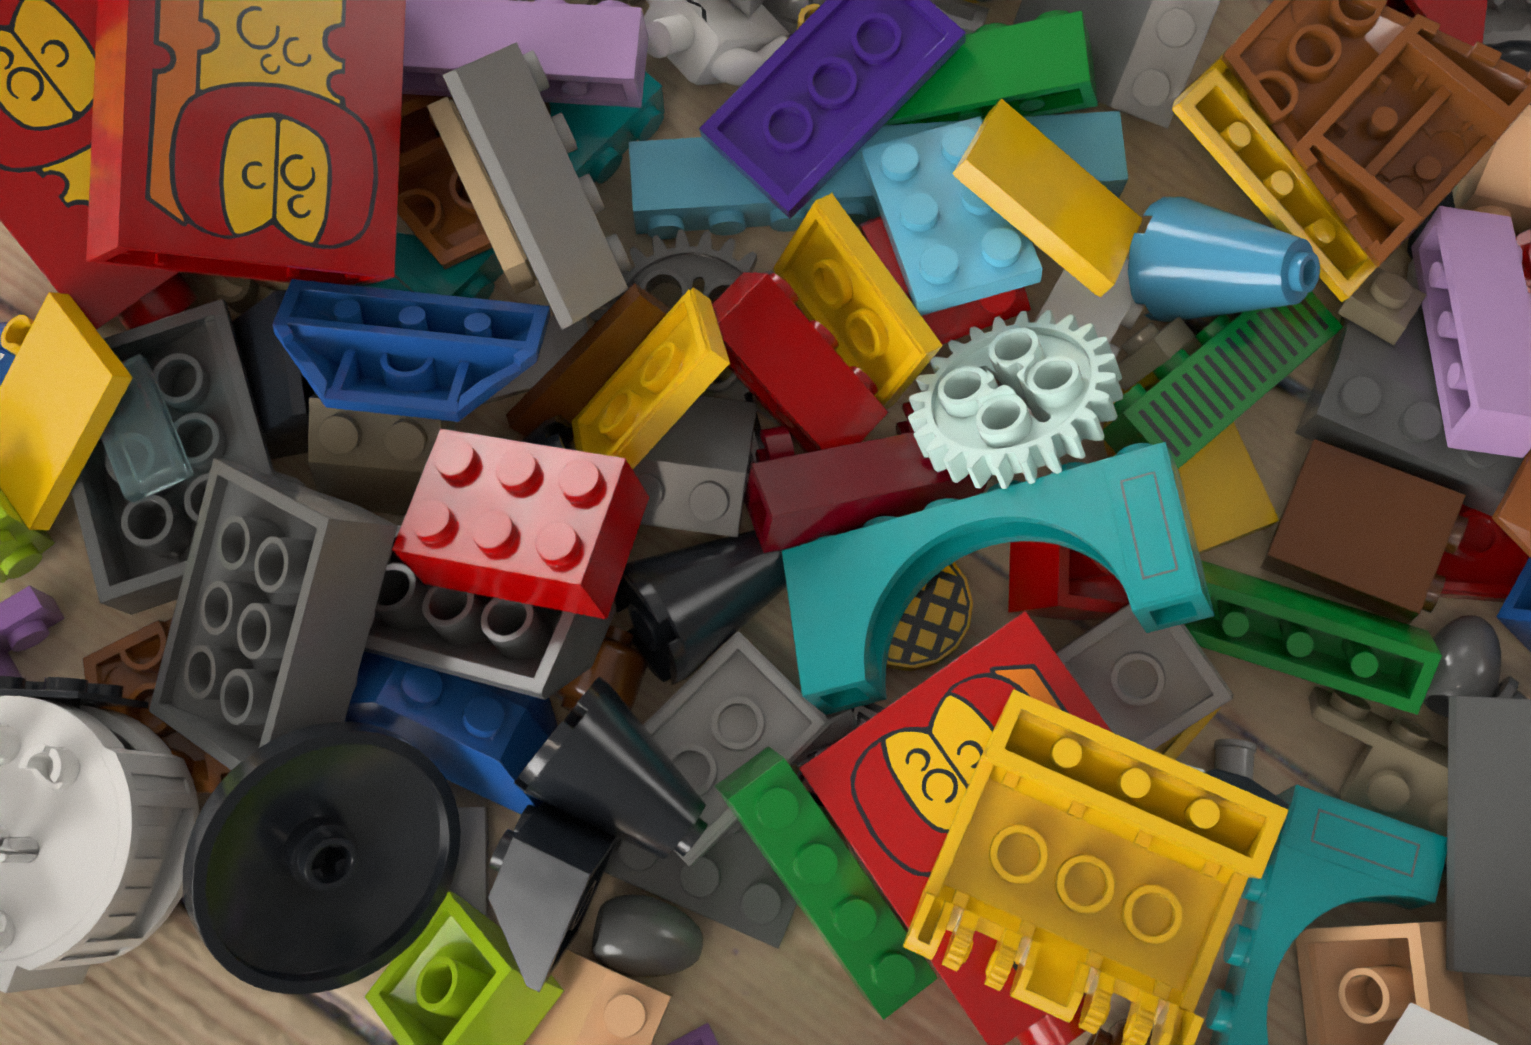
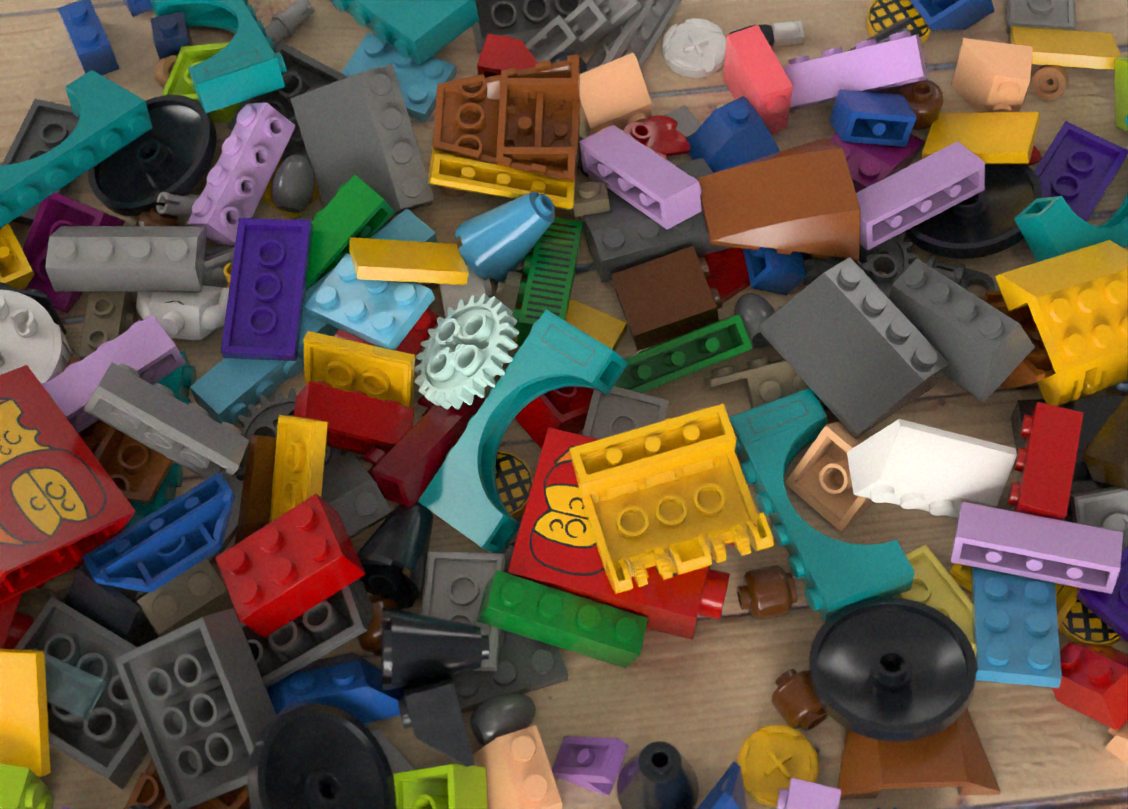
camera: 35 degrees left, 15 degrees down
(482, 195) = (144, 451): tan tile -> none

